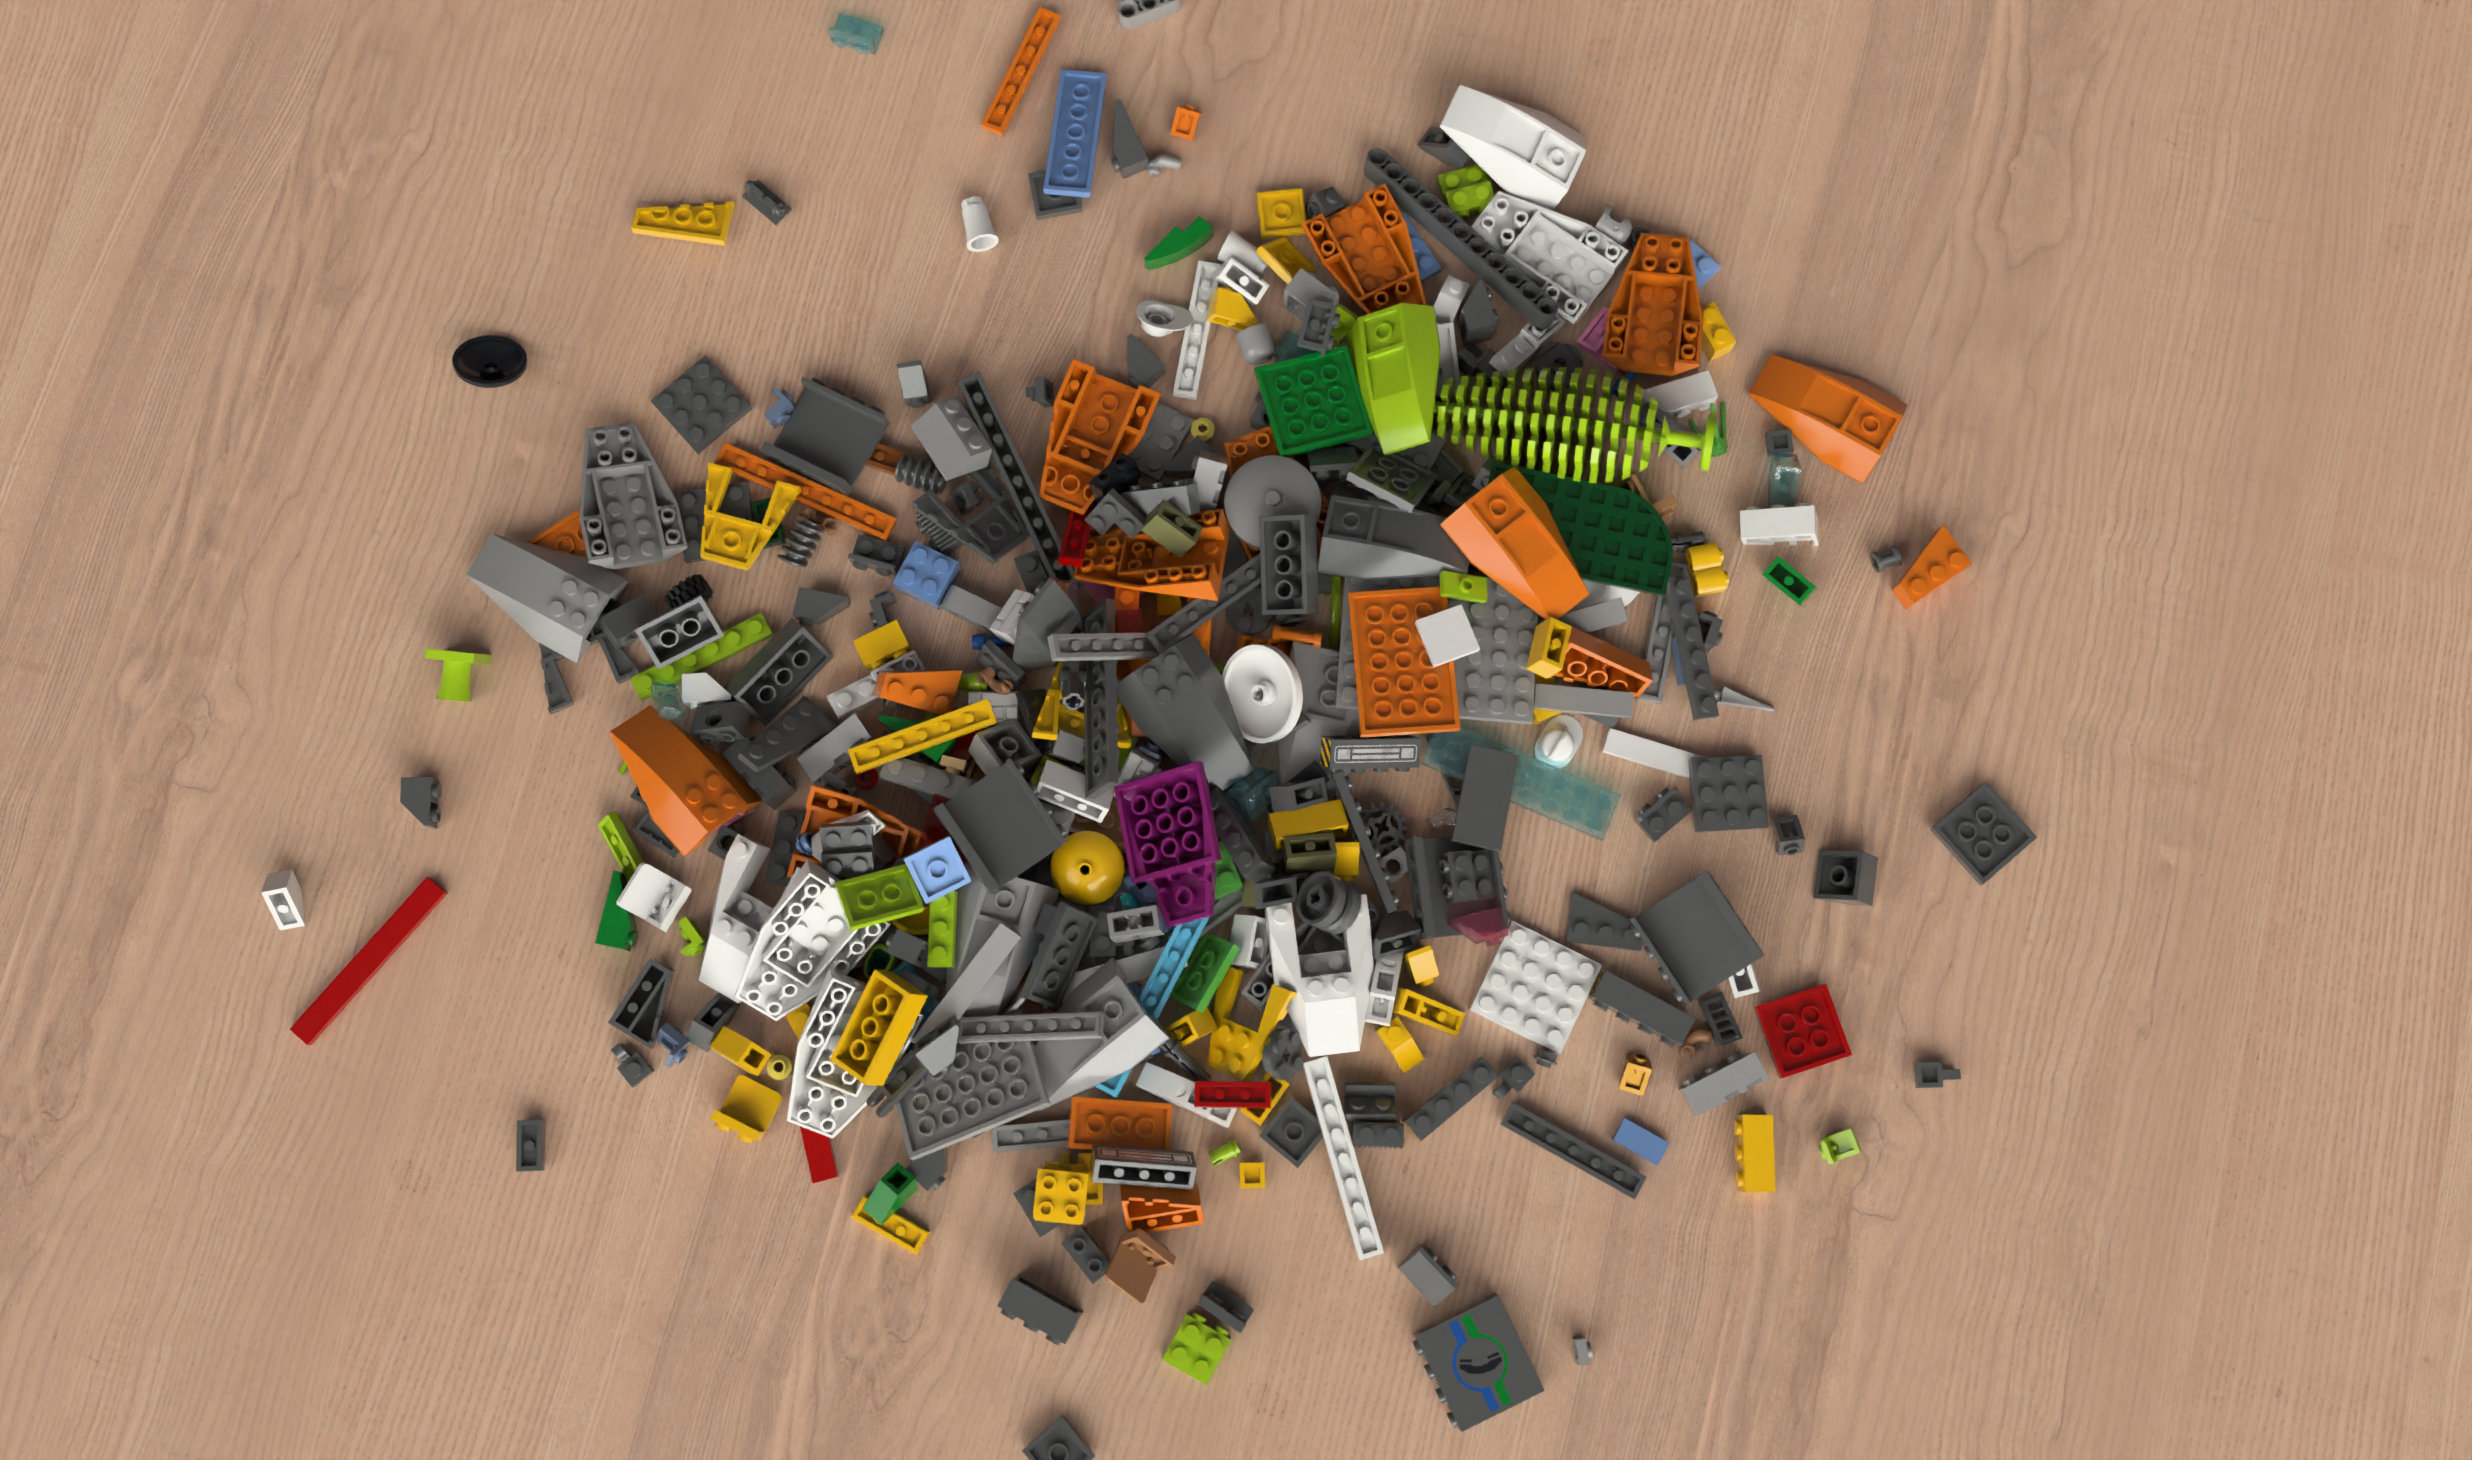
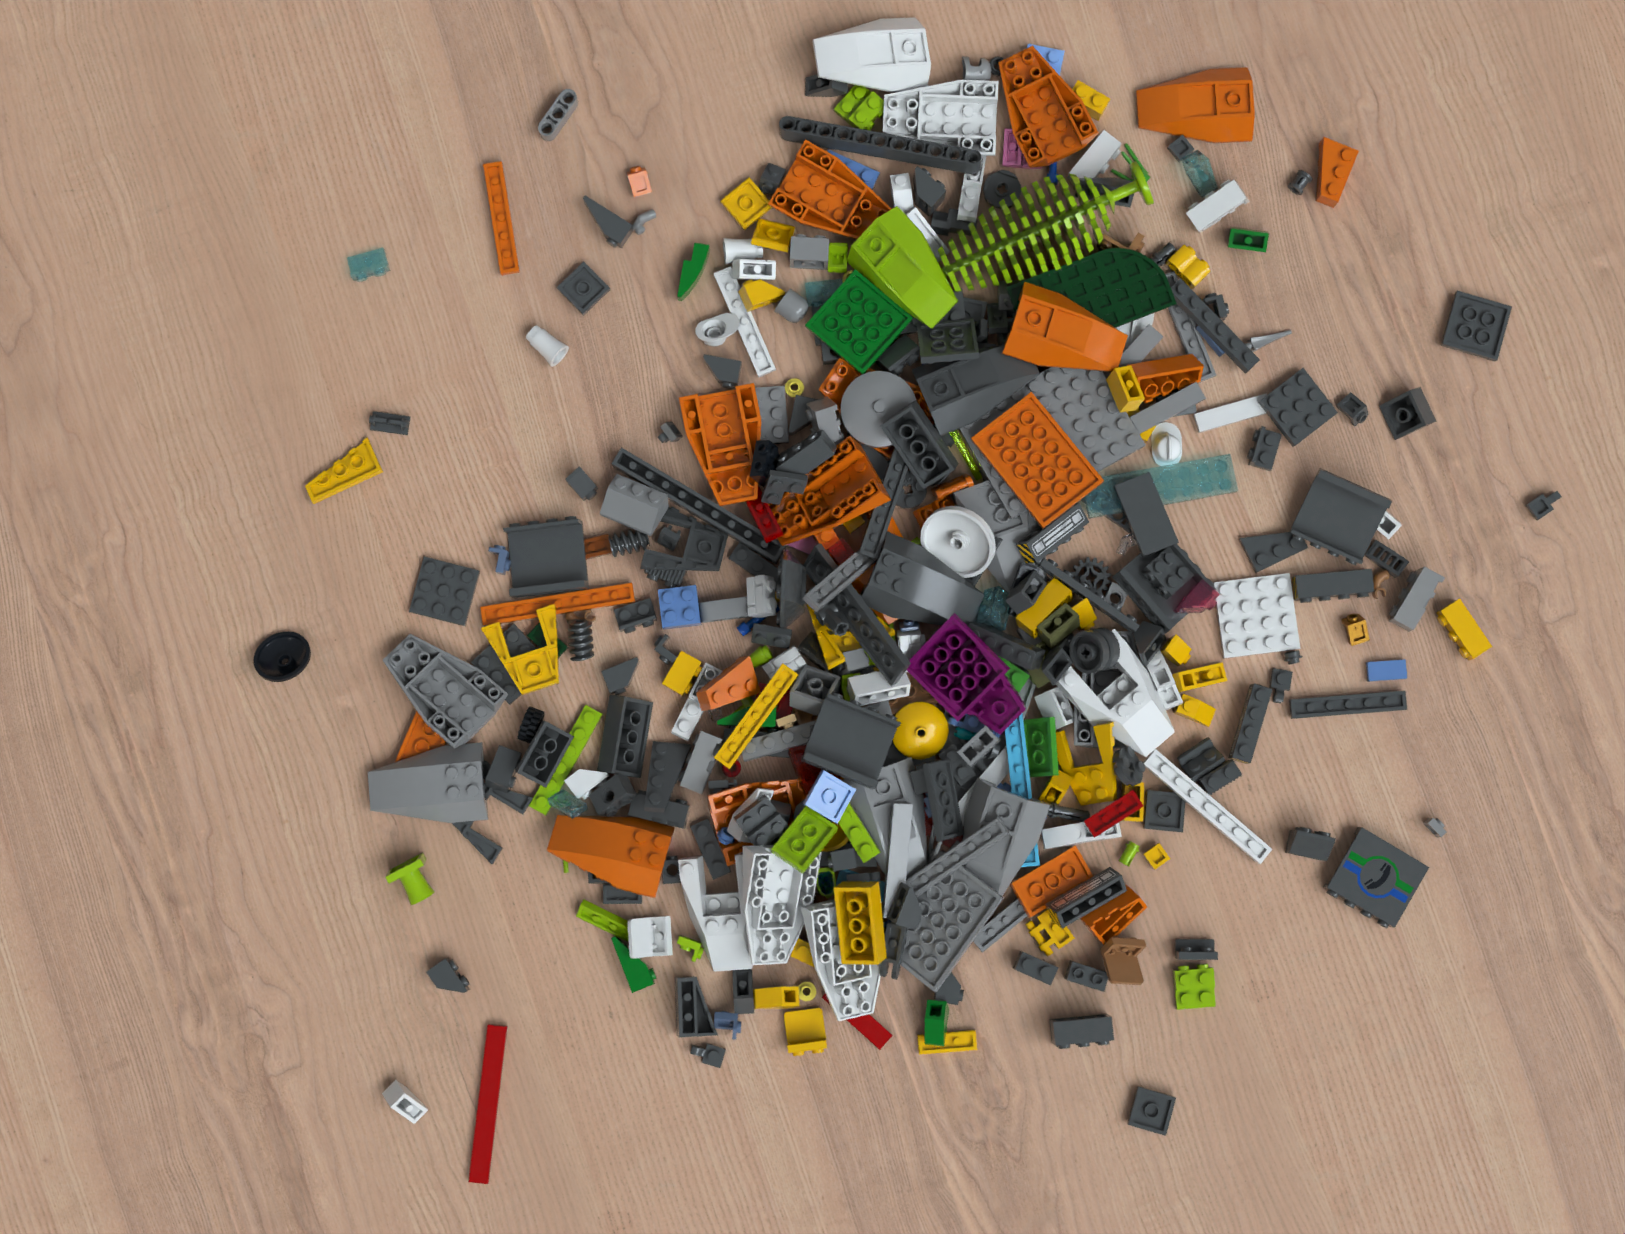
camera: 35 degrees left, 5 degrees up
(530, 1145) = (680, 1148): dark grey plate -> none
(986, 677) = (768, 649): medium nougat arm -> none
(1061, 1193) = (1046, 948): yellow bracket -> none
(1075, 133) = (570, 238): medium blue plate -> none
(1171, 528) = (827, 471): olive brick -> none
(1318, 326) = (830, 269): dark grey bracket -> none
(1447, 635) = (1055, 424): white tile -> none
(1463, 587) = (1043, 384): lime plate -> none
(1802, 1031) = (1443, 531): red plate -> none
(1839, 1145) = (1512, 589): lime bracket -> none

